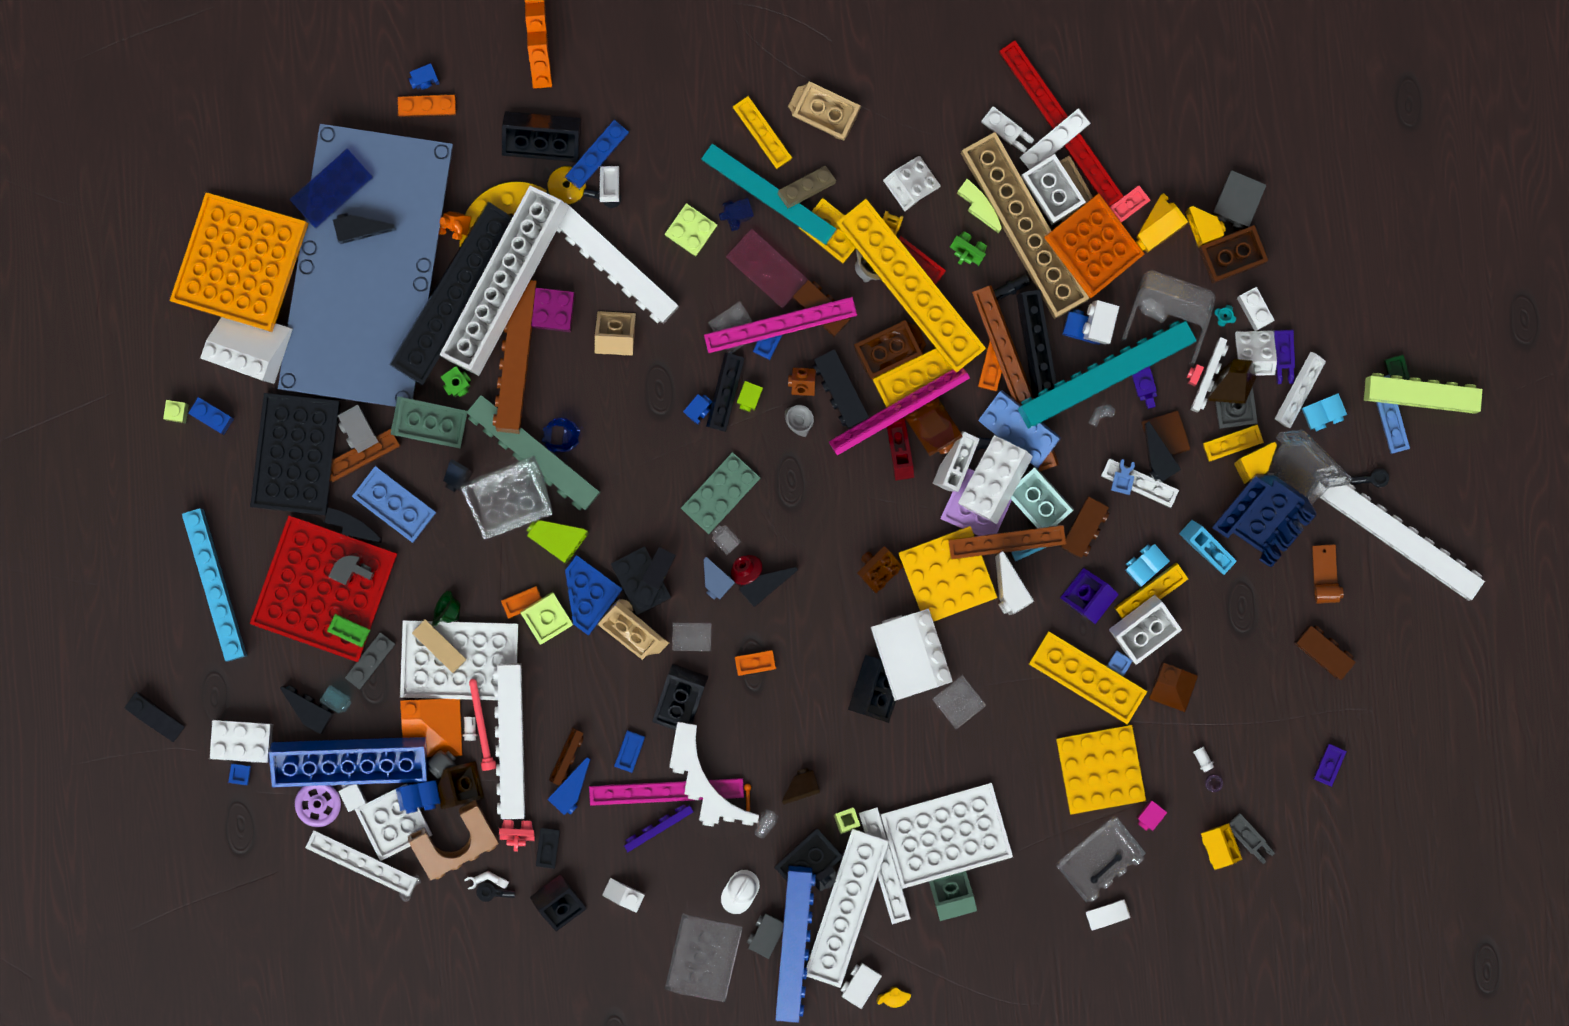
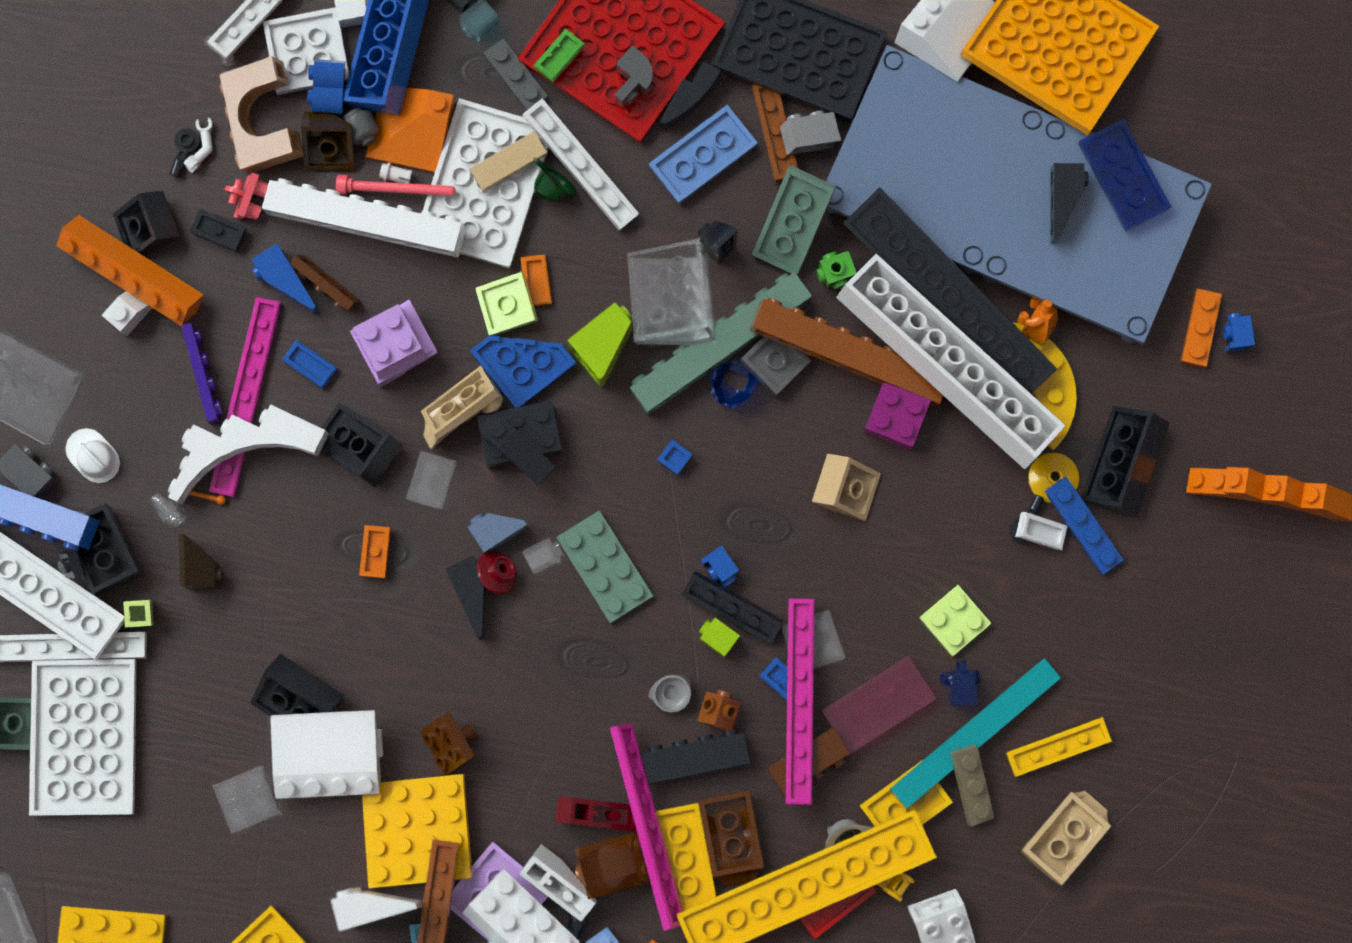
camera: 105 degrees right, 5 degrees down
(427, 592) = (580, 164): none -> white plate
(538, 409) = (774, 363): none -> flat silver plate
(596, 903) = (129, 270): none -> orange brick
(598, 692) = (393, 342): none -> lavender piece
(618, 267) = (933, 512): white brick -> none
(626, 463) = (674, 457): none -> blue plate

